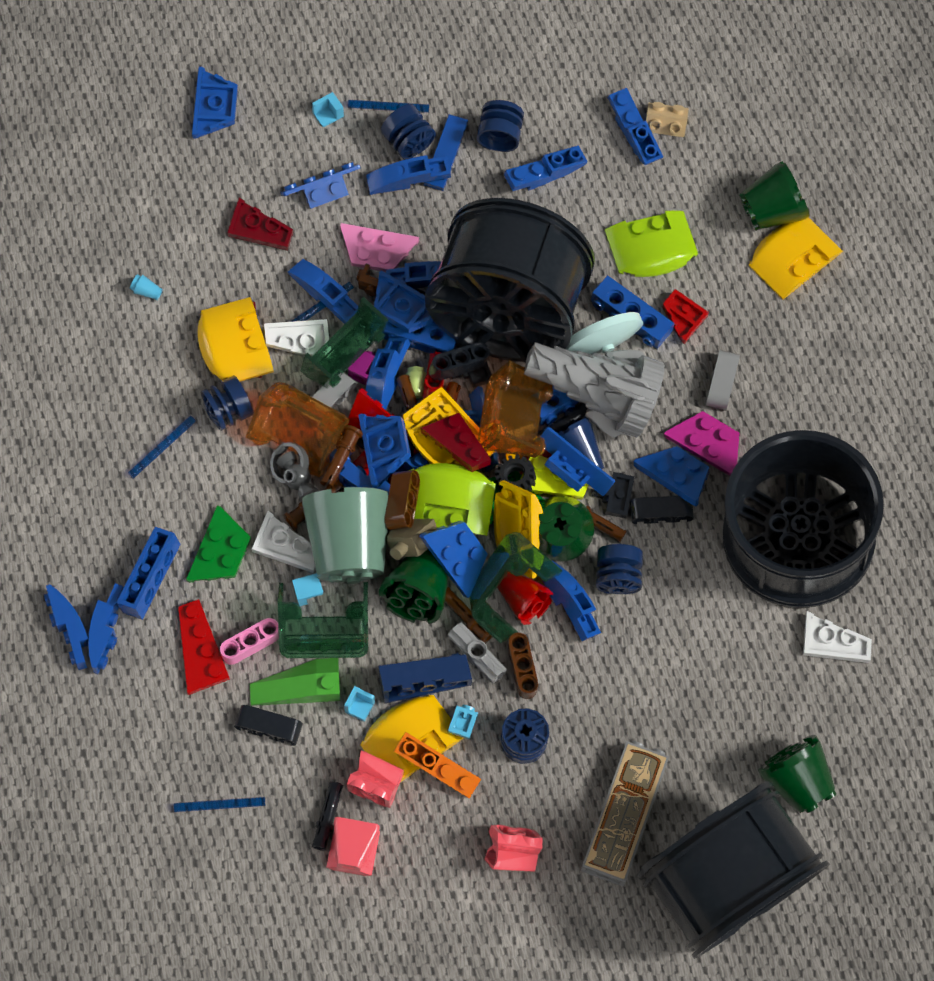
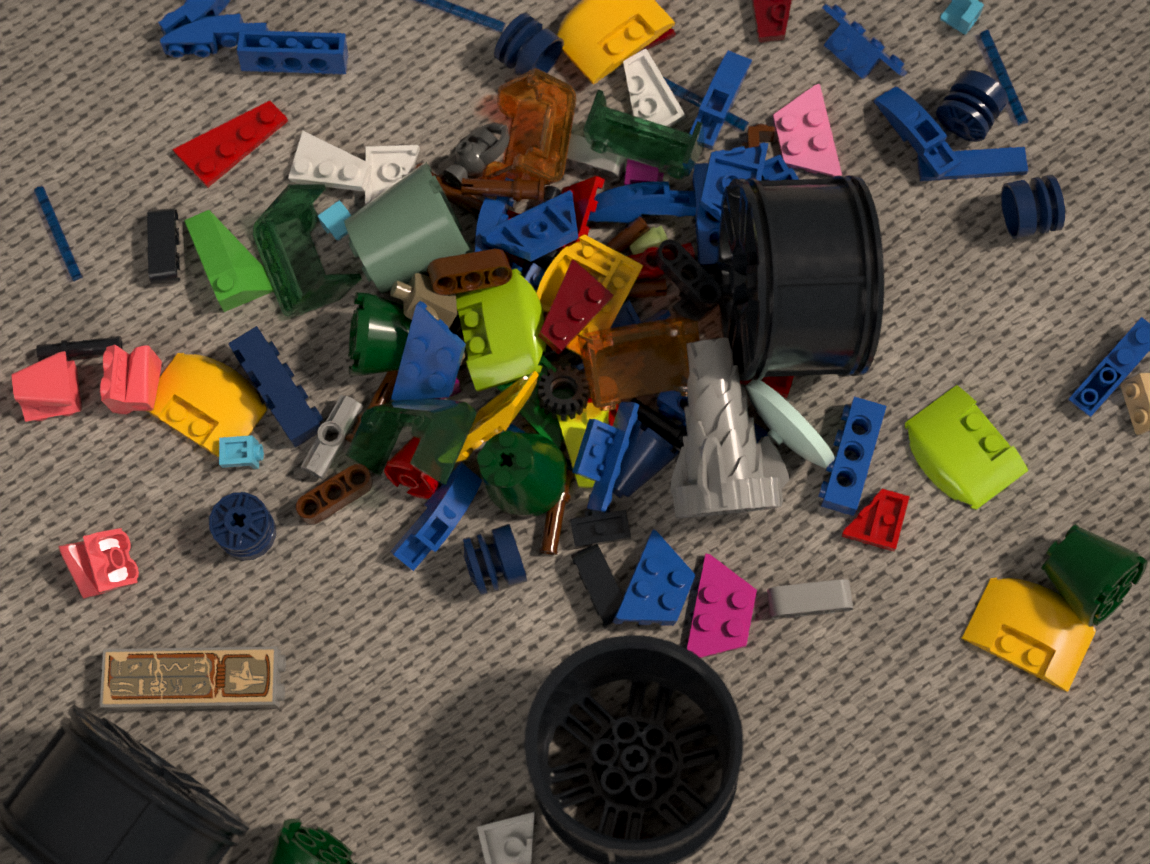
camera: 75 degrees right, 5 degrees up
(220, 549) = (356, 117): green wing -> none
(254, 582) = (325, 164): none -> white wing
(256, 632) = (246, 180): bright pink beam -> none
(359, 703) = (222, 330): medium azure panel -> none
(437, 765) = (174, 438): orange slope -> none
(546, 170) = (1002, 285): blue slope -> none

